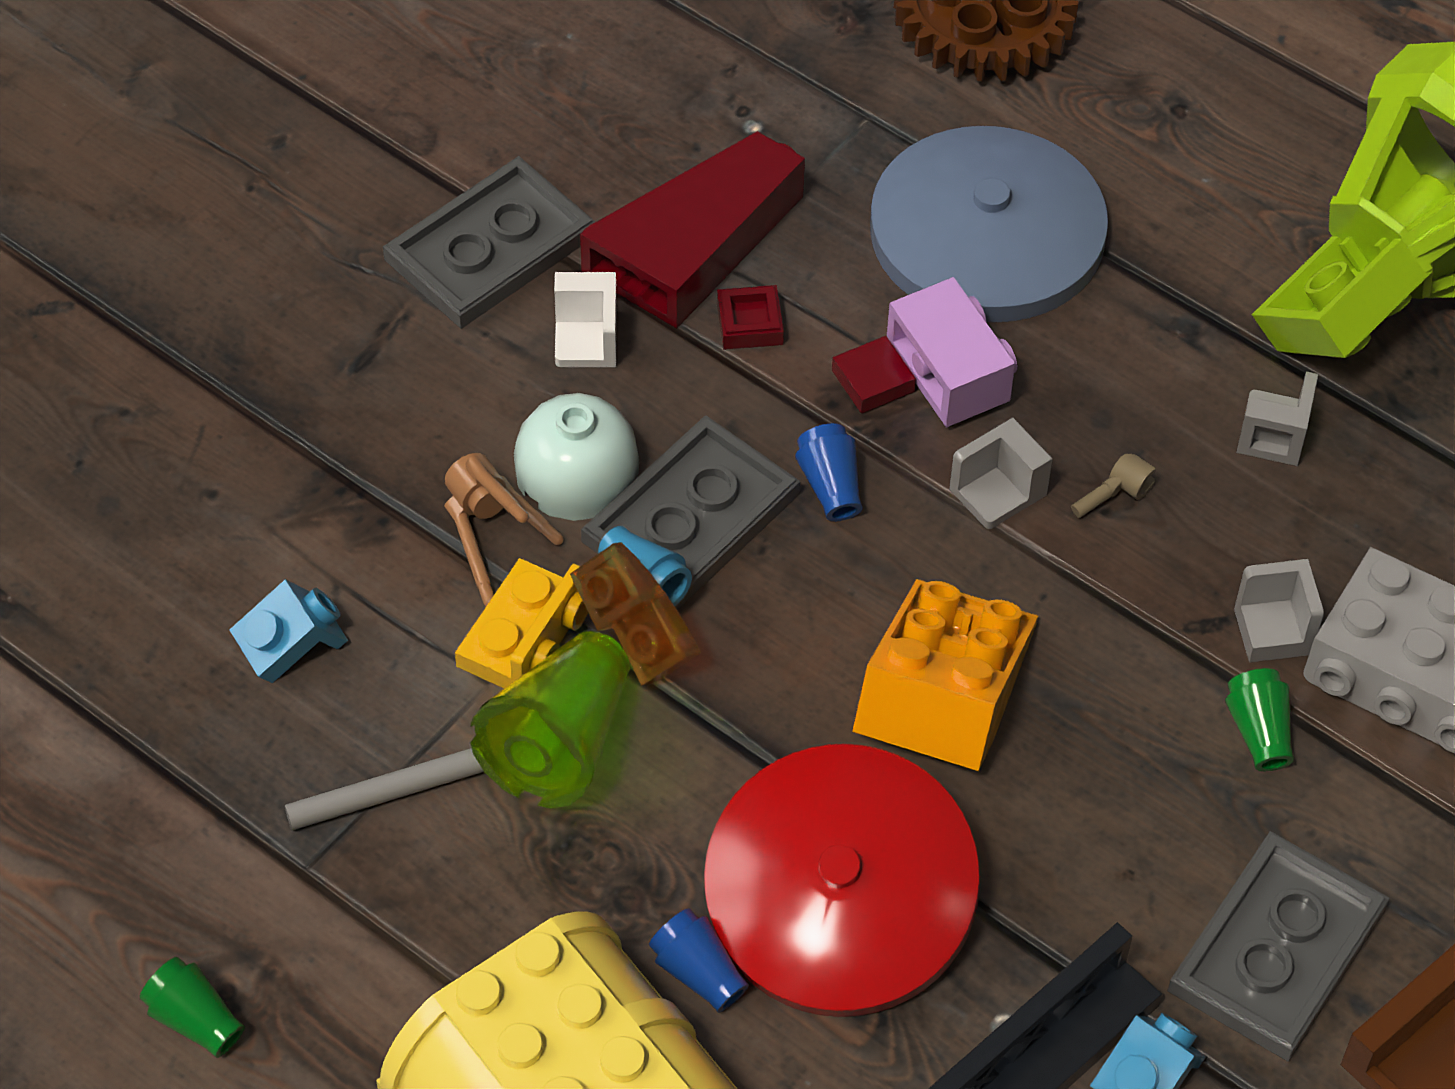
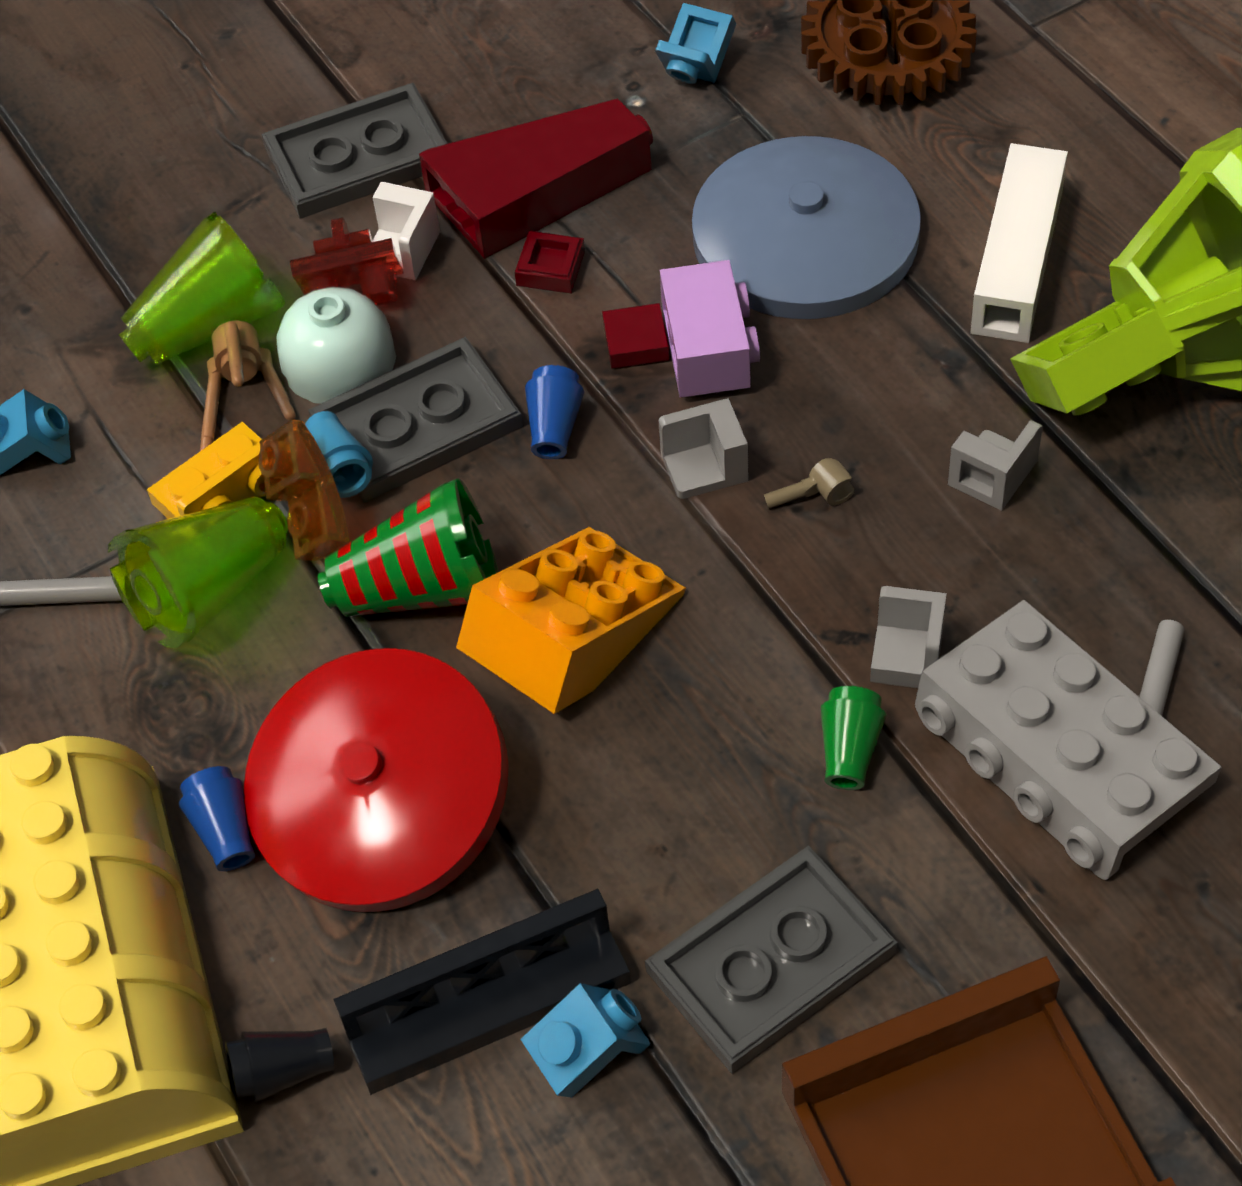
camera: 25 degrees right, 0 degrees up
(417, 432) = (198, 289): none -> clear neon green cone
(581, 363) = (348, 261): none -> clear red hips
(777, 654) = (412, 559): none -> green cone
(798, 54) = (696, 44): none -> dark azure bracket
(1208, 195) = (1018, 243): none -> white brick

